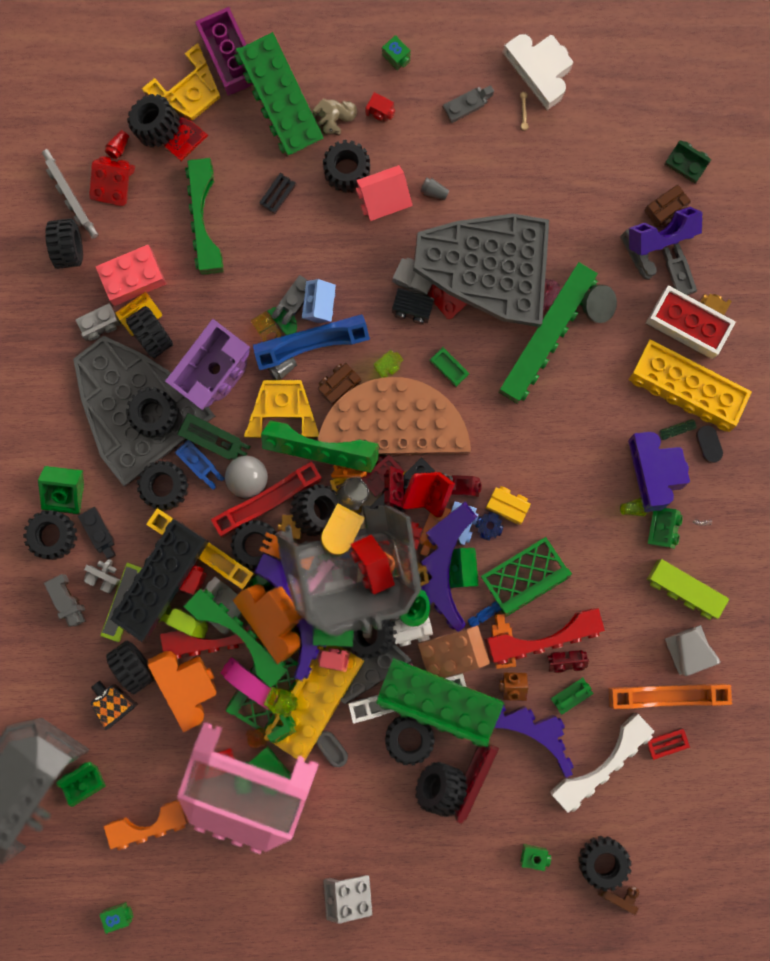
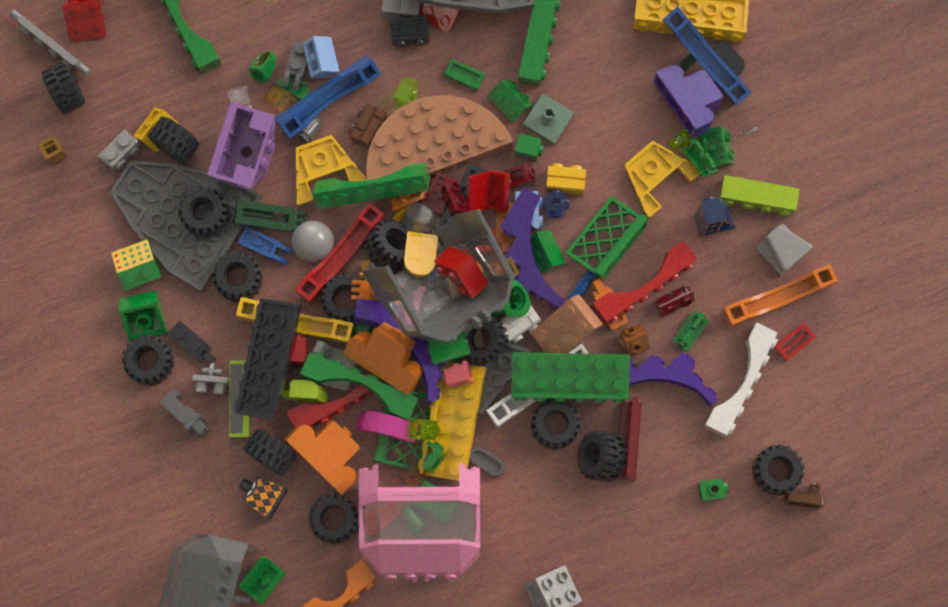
camera: 20 degrees left, 5 degrees down
(33, 299) = (52, 150): none -> pearl gold brick
(72, 439) = (136, 264): none -> slope
(130, 275) = (136, 96): coral brick -> none
(152, 756) = (318, 510): none -> black tyre
(227, 314) = (240, 96): none -> clear brick
(261, 289) = (263, 66): none -> green rock
(483, 407) = (509, 99): none -> green bracket
(484, 461) = (529, 147): none -> green brick
(513, 439) = (548, 119): none -> sand green tile
(594, 524) = (650, 168): none -> yellow wing
(635, 596) = (714, 217): none -> dark blue wedge
(644, 537) = (701, 161): none -> green hinge
(688, 436) = (706, 56): none -> blue arch

